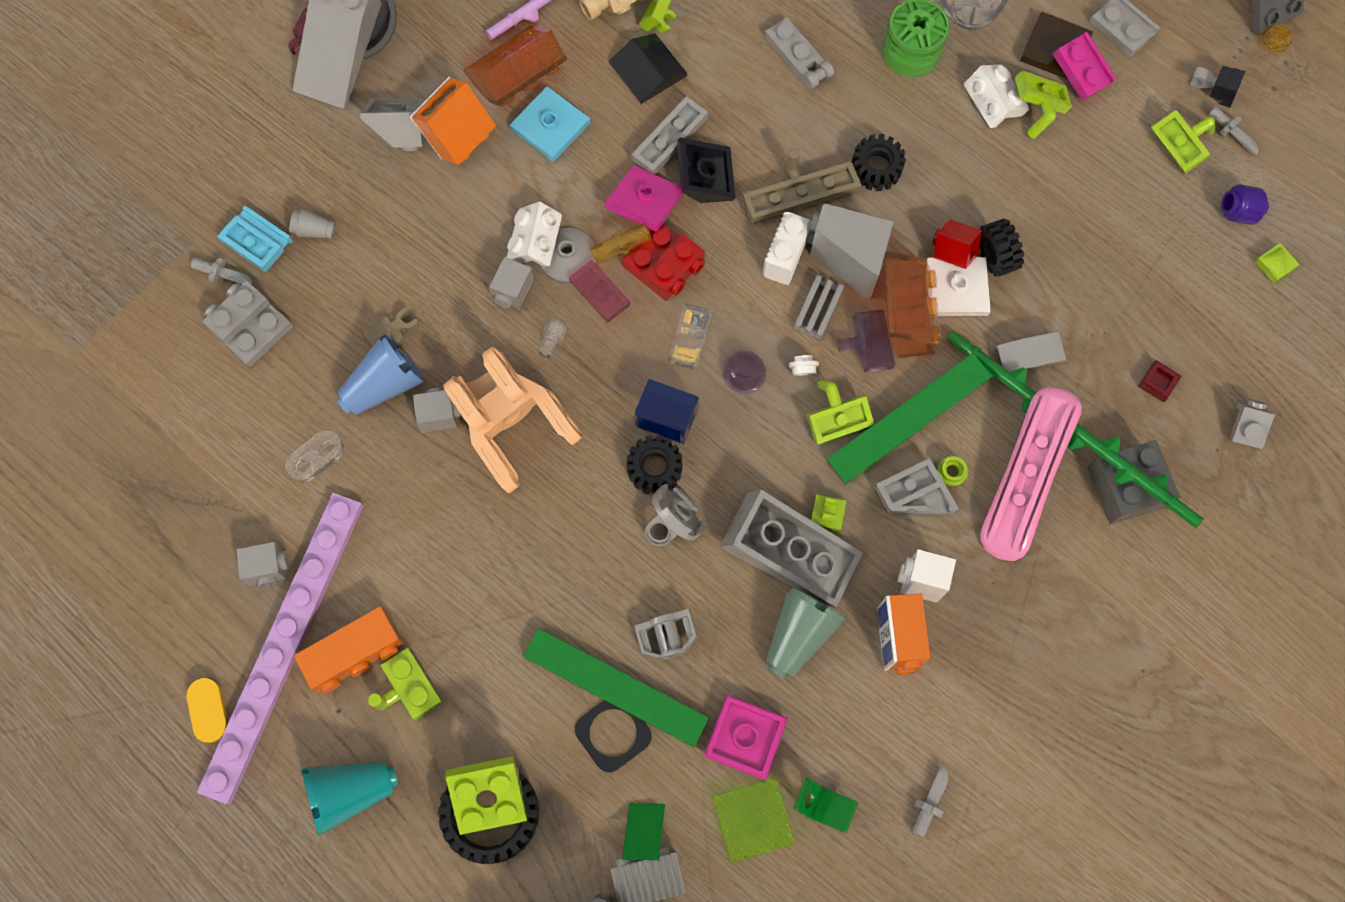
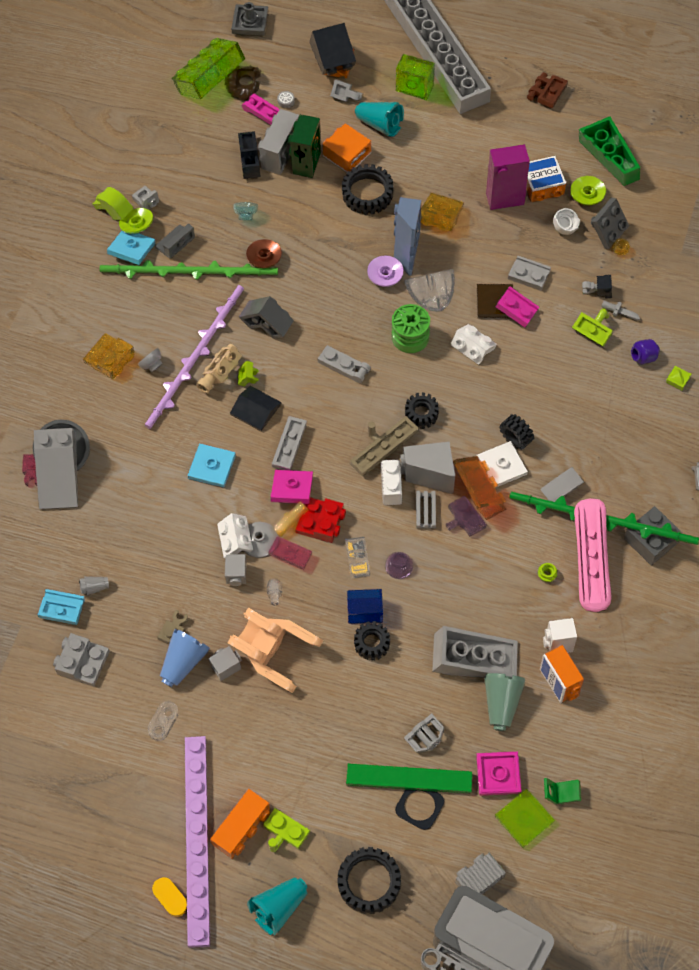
camera: 20 degrees left, 10 degrees down
(218, 270) = (46, 635): light grey piece -> none
(262, 564) = (163, 796): light grey brick -> none
(392, 121) = (117, 499): light grey slope -> none
(453, 121) = (154, 486): orange piece -> none
(496, 776) = (352, 862): lime piece -> none
(516, 65) = (174, 437): clear orange slope -> none
(643, 831) = (465, 850): green sticker -> none
(677, 514) = (399, 663): light grey tile -> none
(706, 171) = (321, 456): black slope -> none
(803, 365) = (433, 547): white plate -> none
(828, 512) = (487, 625): lime tile -> none
(840, 417) = (468, 568): lime plate -> none
(909, 418) = (508, 552): green tile -> none
(916, 491) = (532, 592): light grey wing -> none
(928, 808) = (621, 768): light grey piece -> none
(957, 243) = (490, 439): red brick -> none
(1047, 94) = (501, 331): lime plate -> none
(1159, 381) = (642, 472): dark red tile -> none

